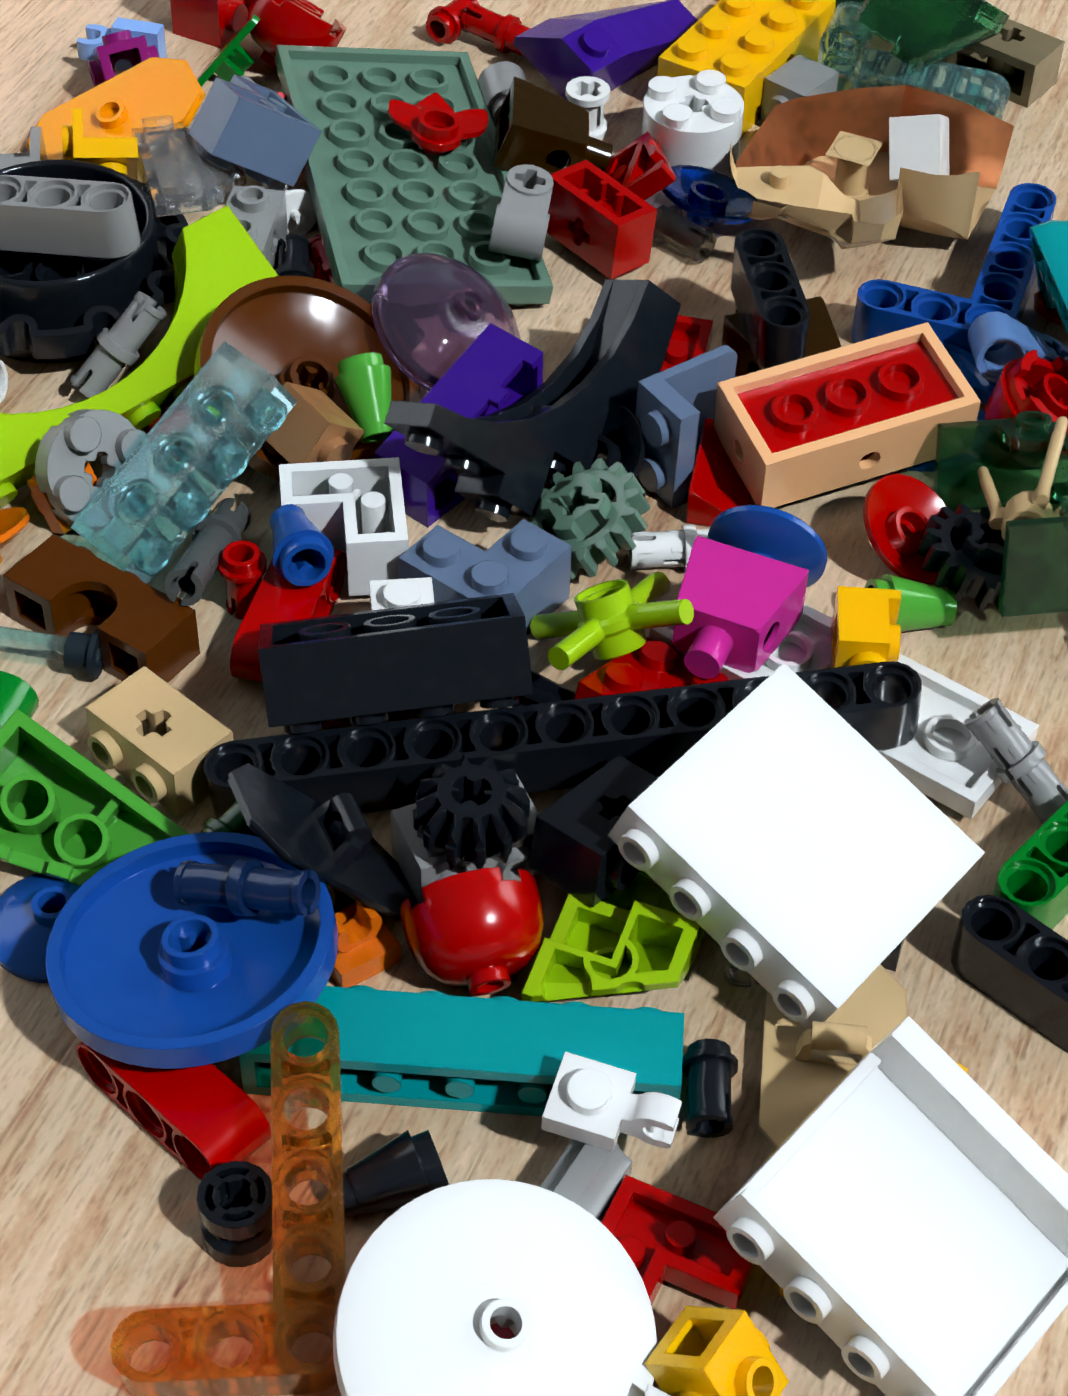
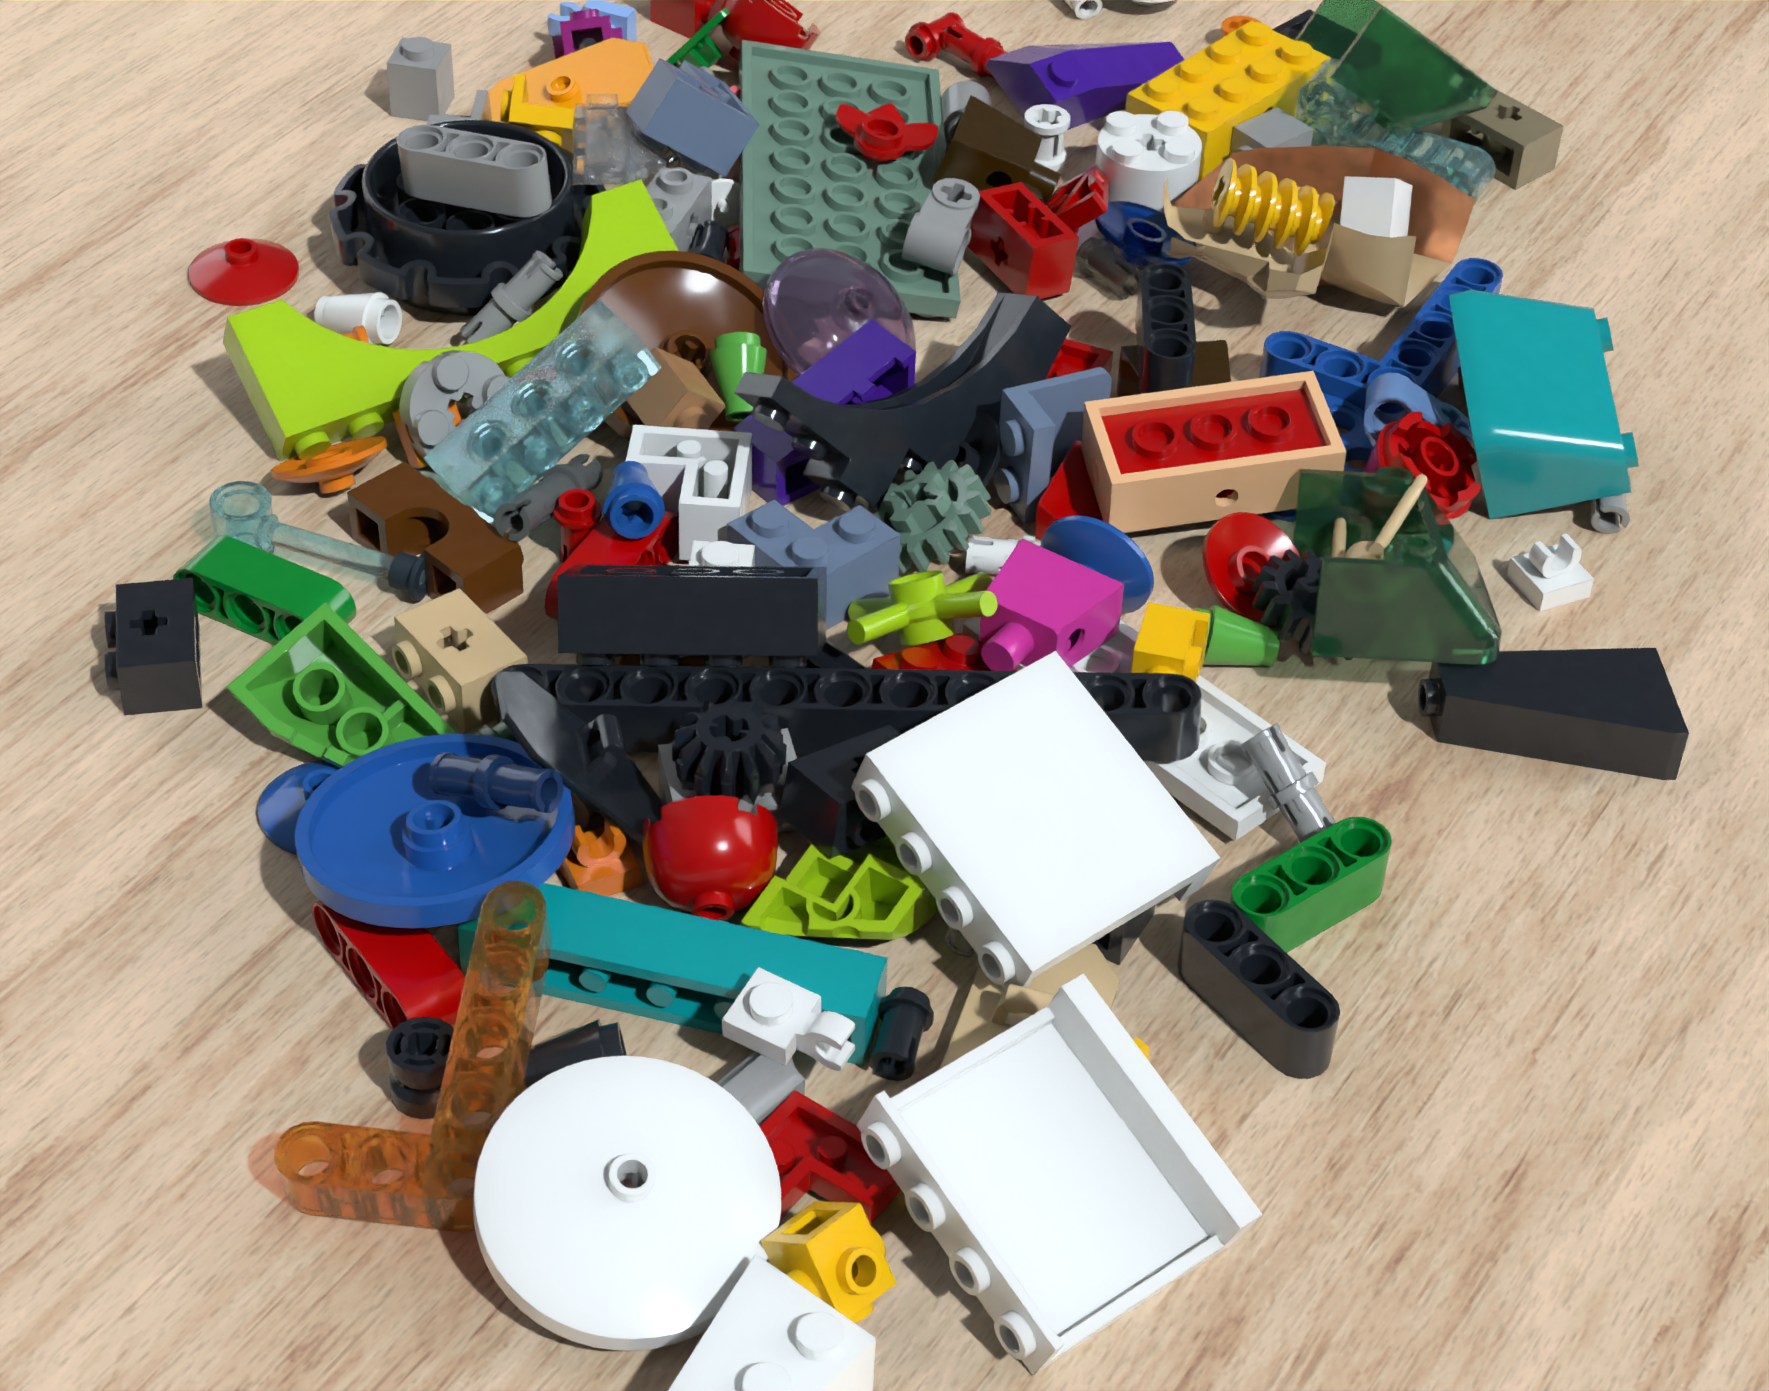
camera: 10 degrees right, 5 degrees down
(836, 158) = (1270, 206): none -> yellow piece

